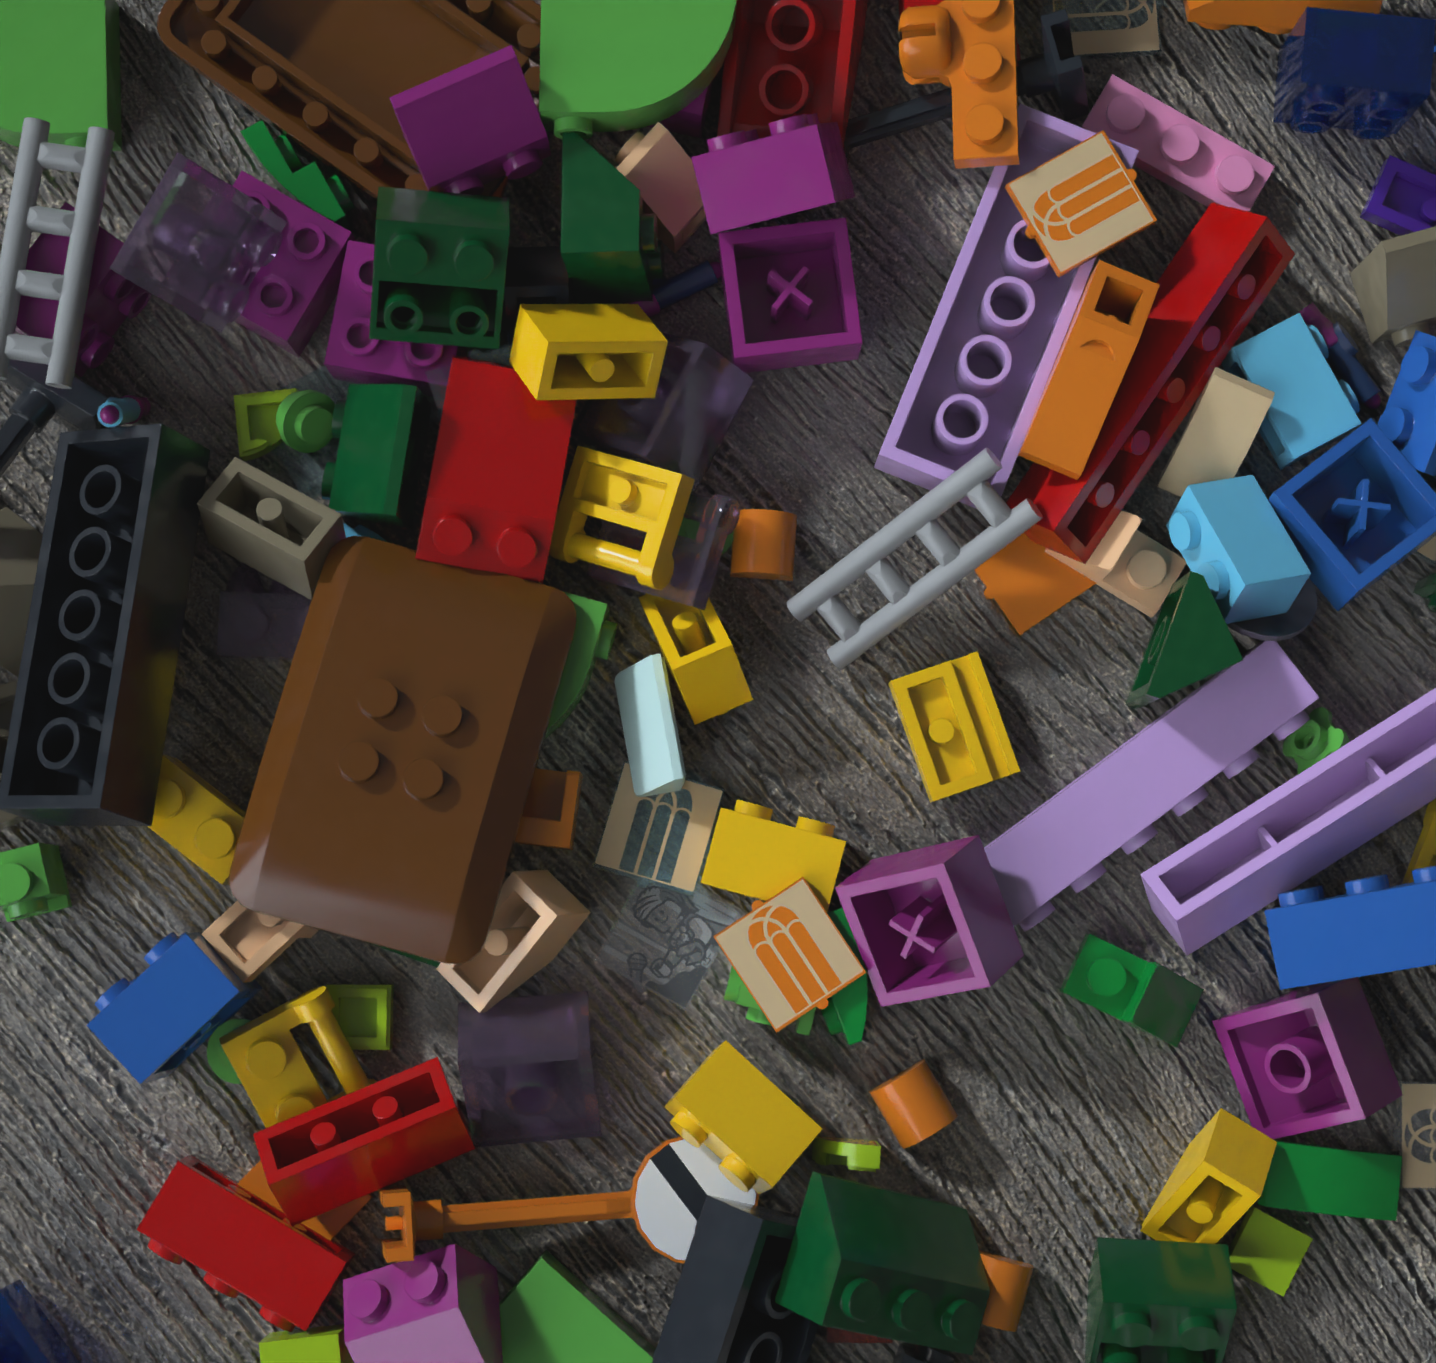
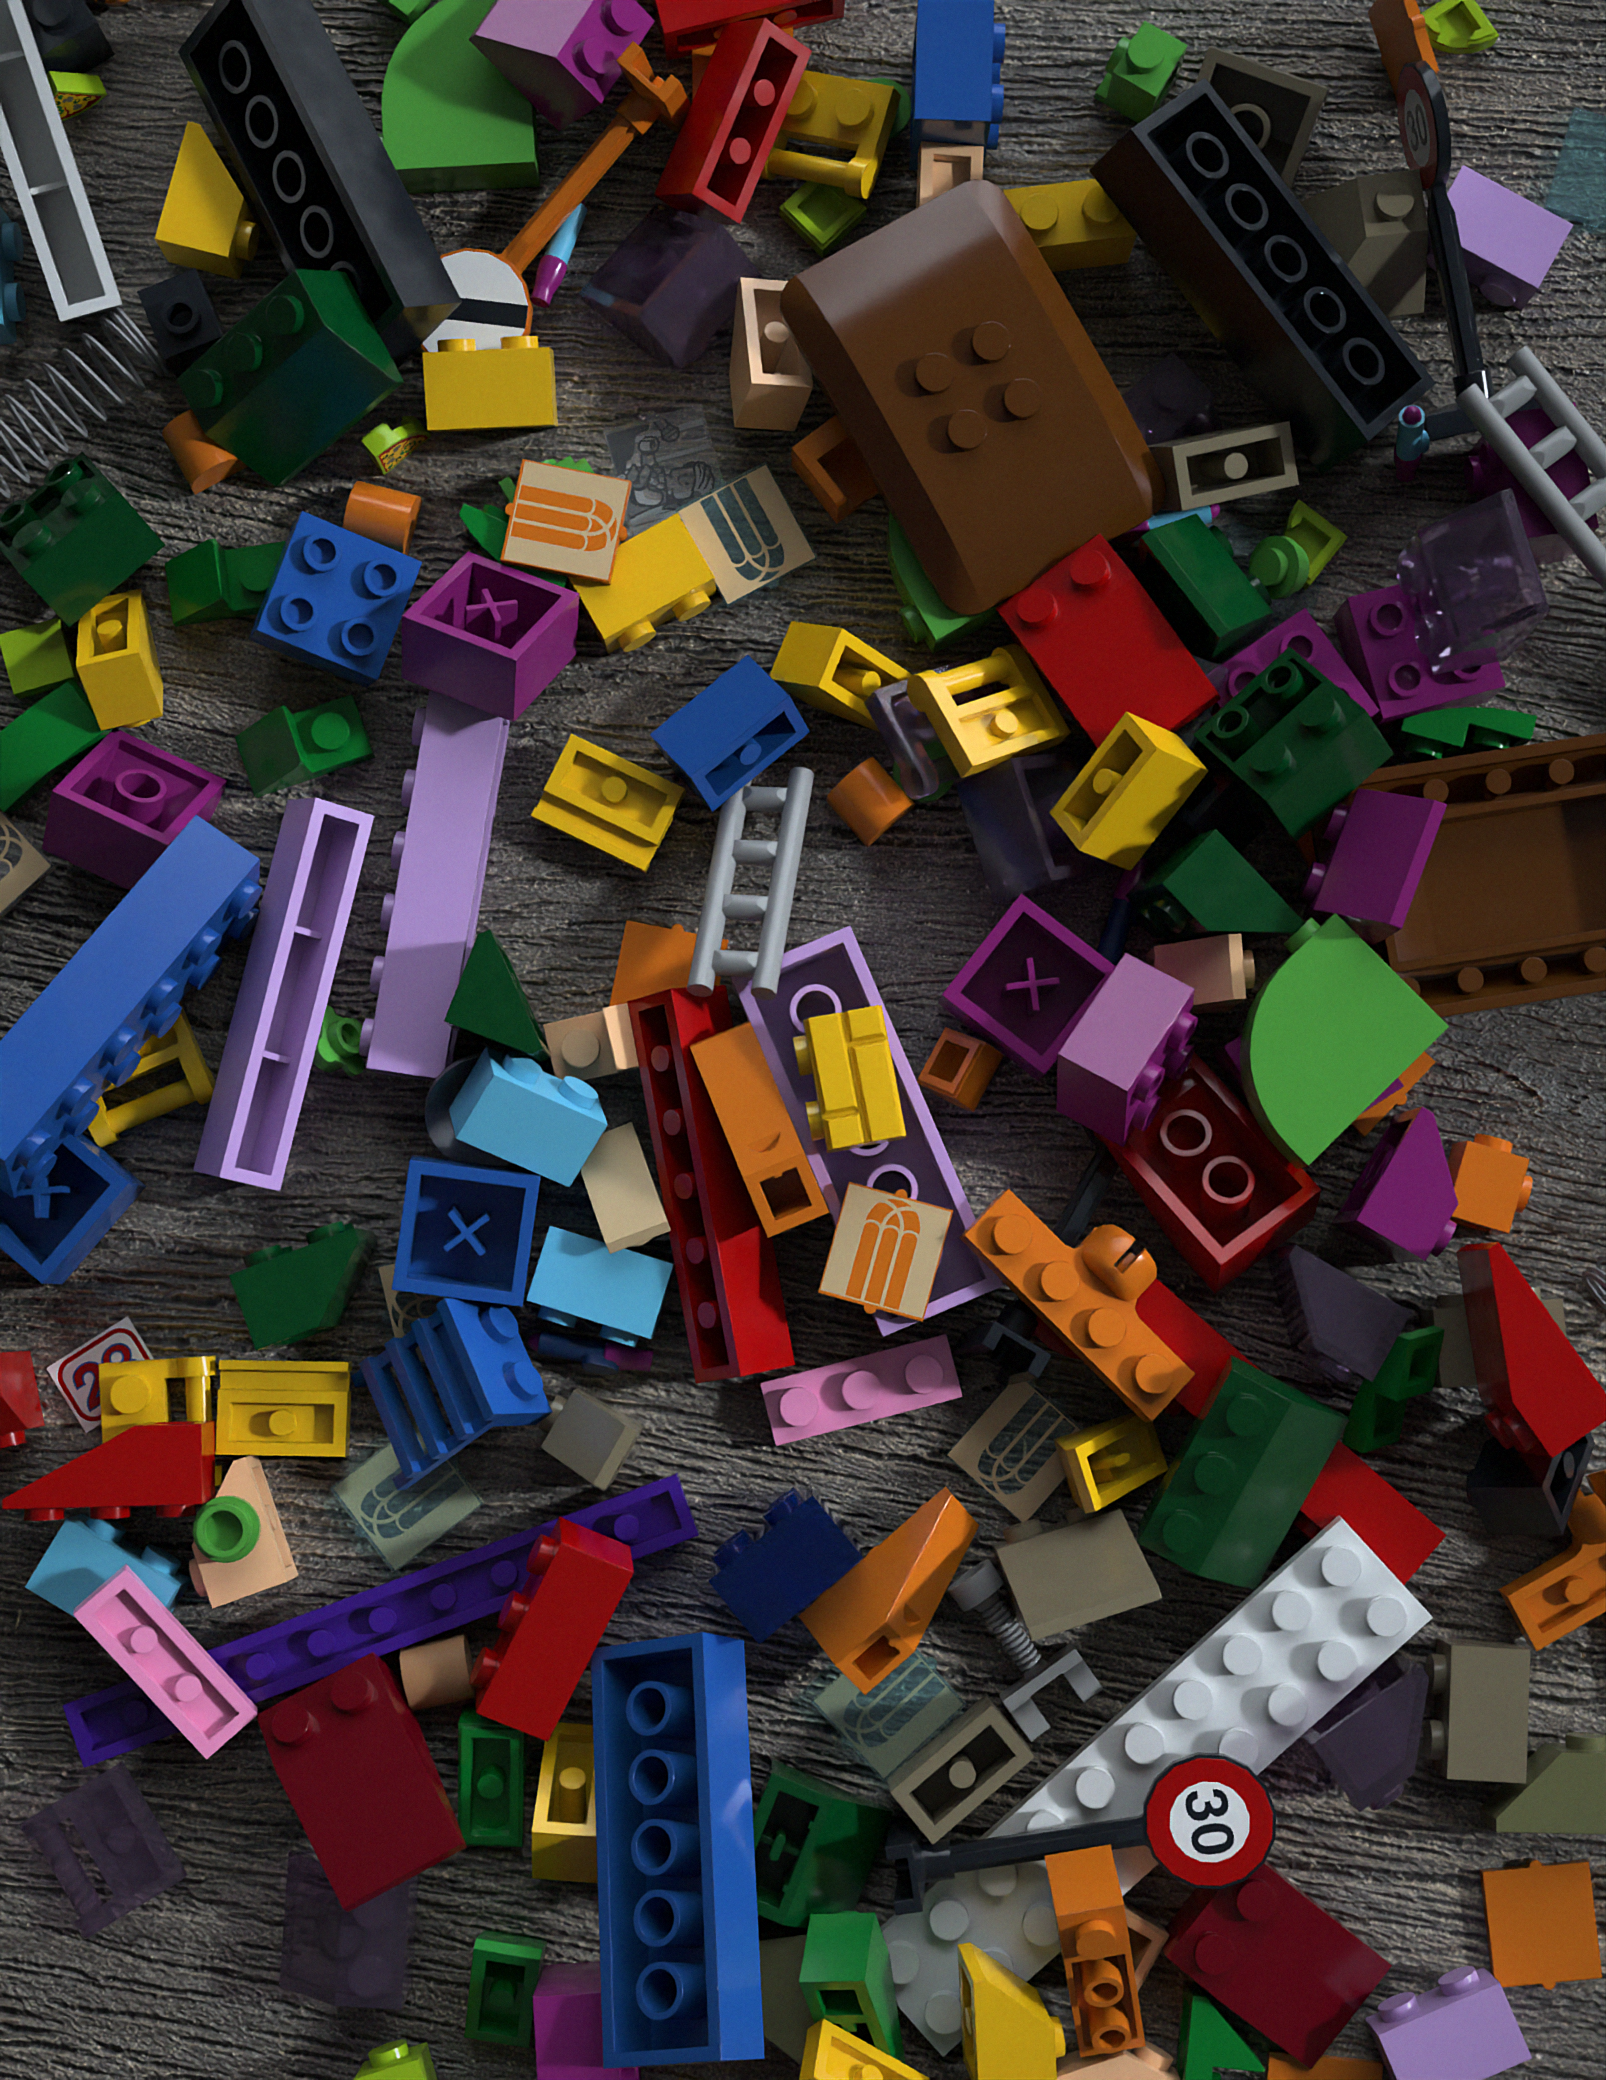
camera: 135 degrees right, 0 degrees up
(596, 1174) = (554, 262): none -> piece
(650, 727) = (818, 591): light aqua slope -> none
(820, 688) = (730, 732): none -> blue brick
(891, 294) = (960, 1069): none -> orange brick
(990, 336) = (851, 1079): none -> yellow brick
(1014, 1066) = (335, 600): none -> blue brick
(1070, 1166) = (219, 583): none -> green slope

